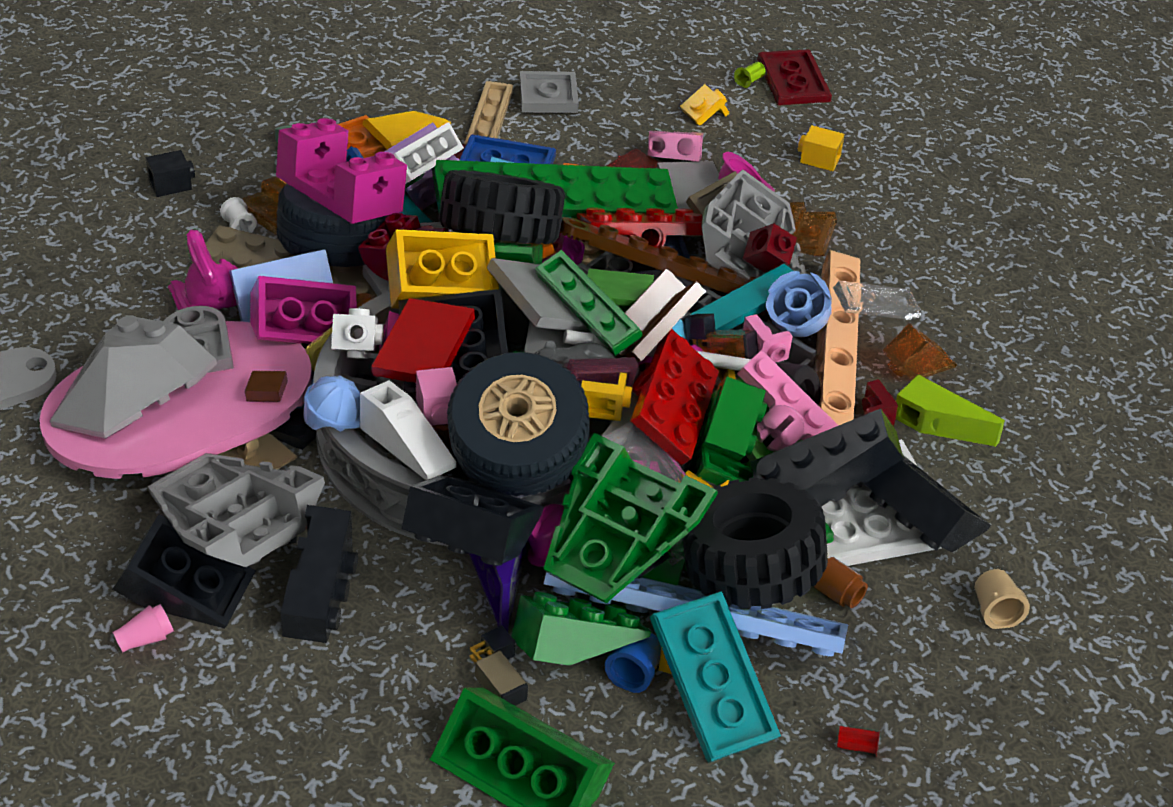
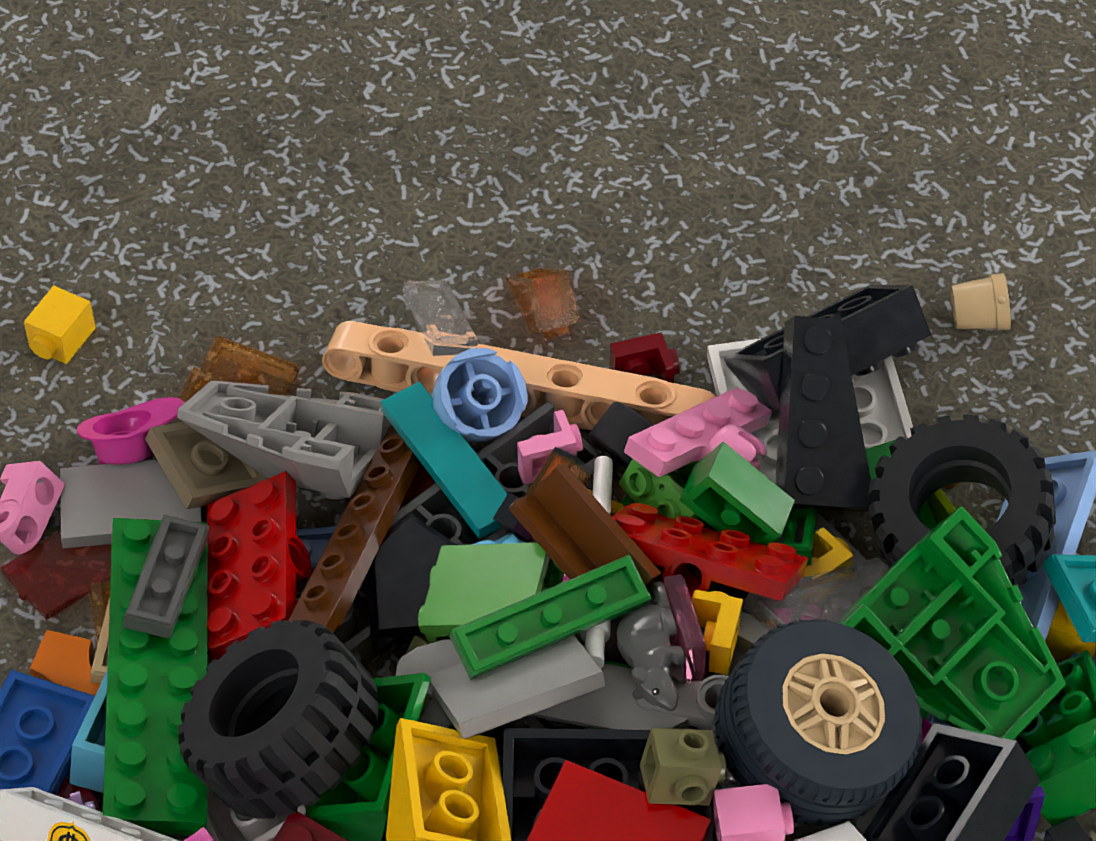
camera: 80 degrees left, 10 degrees up
(466, 346) = (681, 766): none -> olive brick
(620, 183) = (166, 577): none -> dark grey tile
(769, 247) = (335, 425): dark red brick -> none
(945, 414) = (655, 294): lime slope -> none

